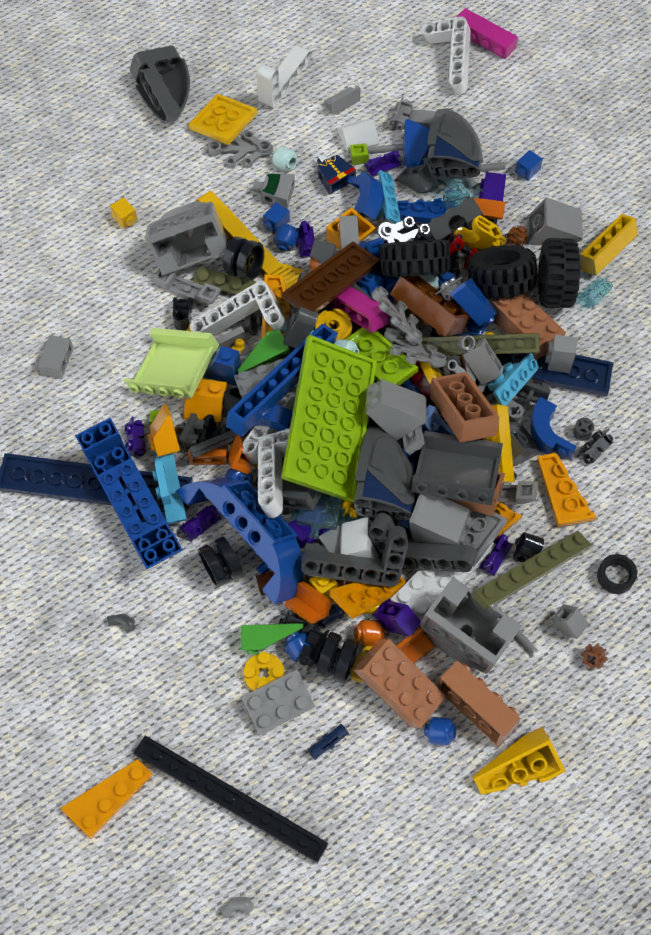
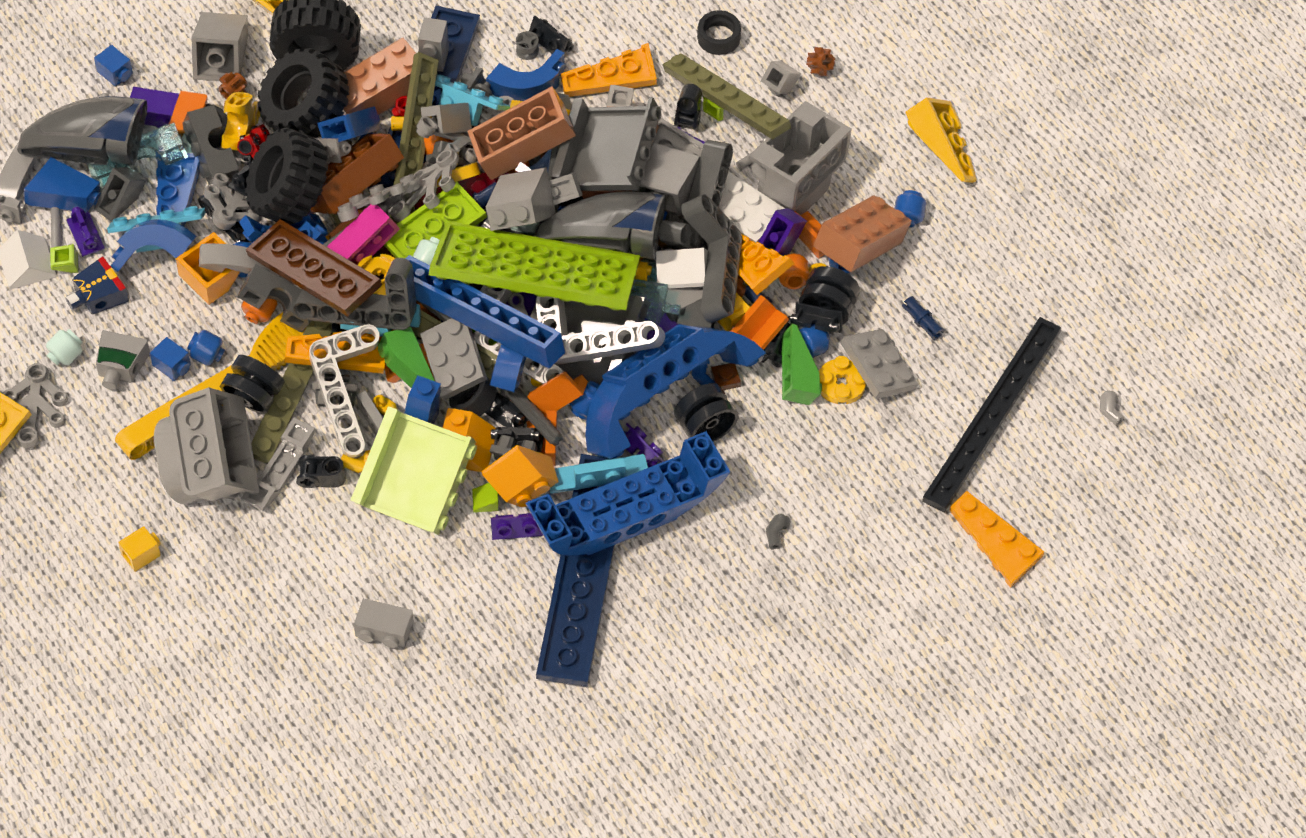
camera: 90 degrees left, 5 degrees down
(305, 239) = (219, 325): dark purple hinge -> none
(478, 703) = (882, 164): nougat brick -> none

